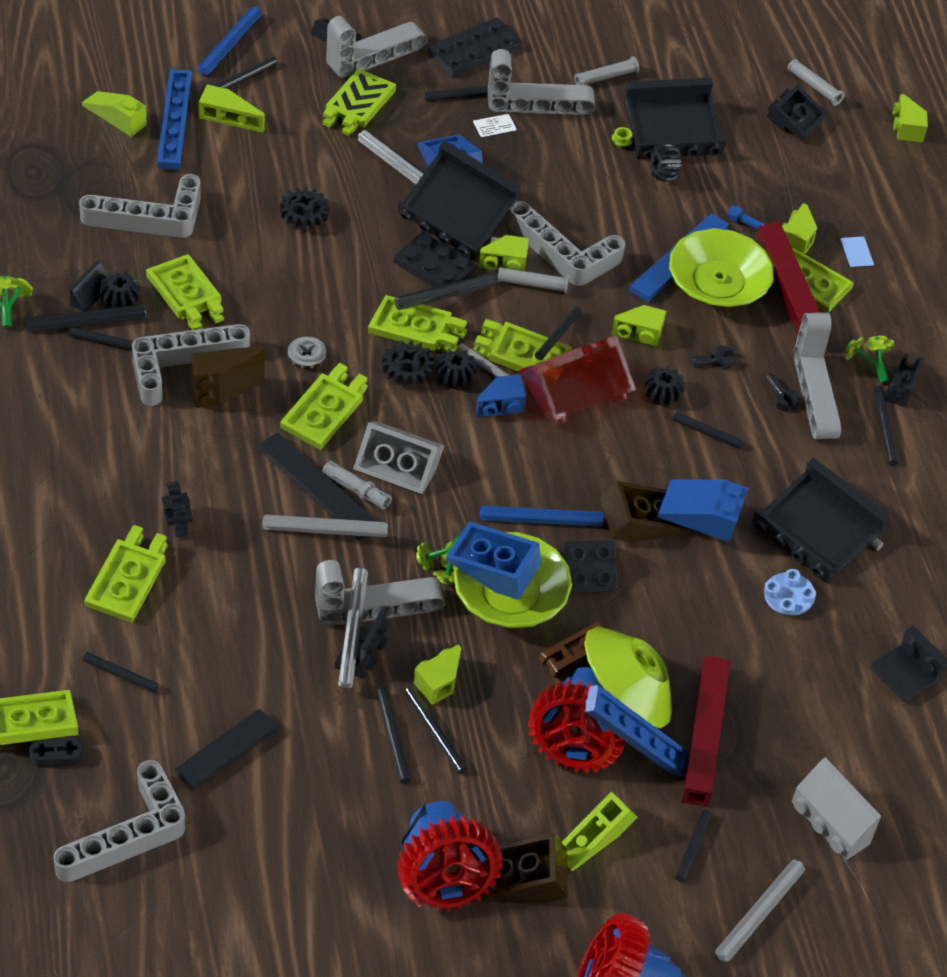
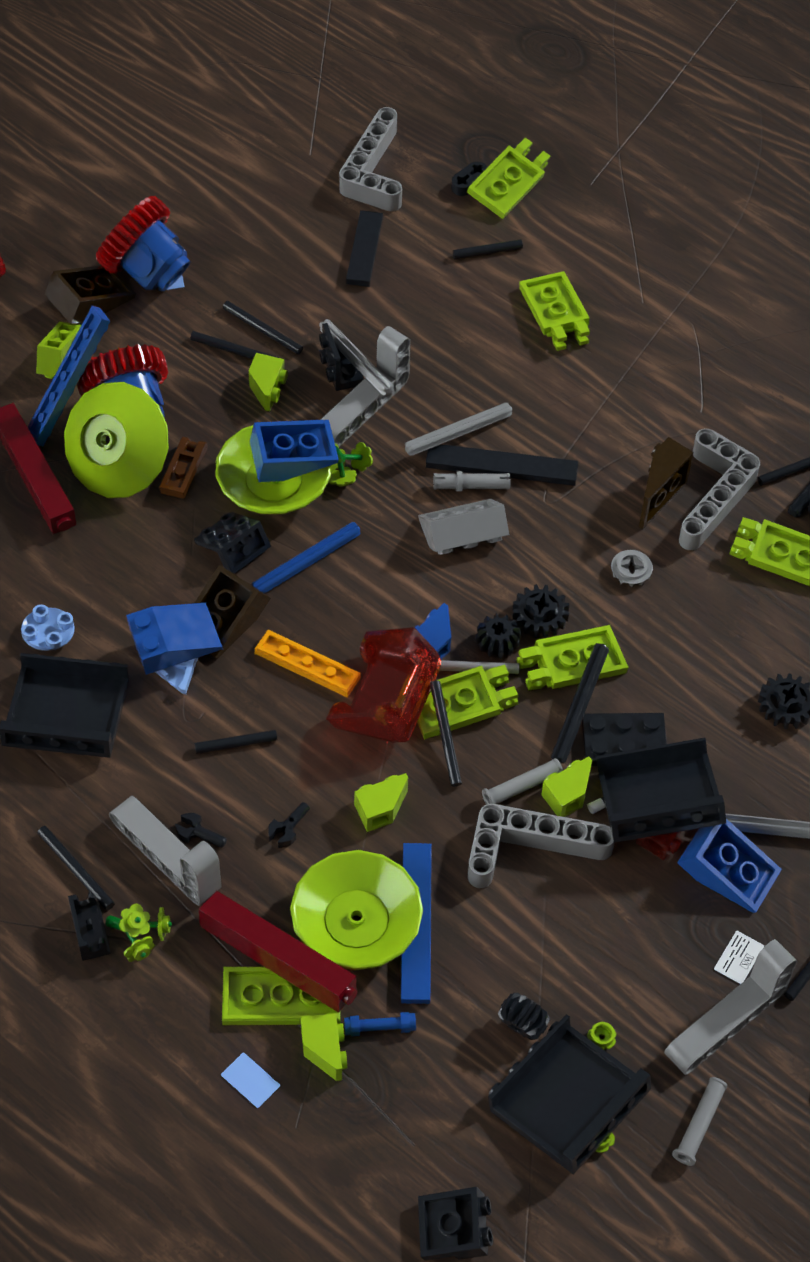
camera: 145 degrees right, 5 degrees up
(177, 509) = (570, 354): black gear -> none
(324, 407) = (564, 529): lime tile -> none
(608, 445) = (307, 663): none -> light orange tile
(664, 385) = (307, 750): black gear -> none

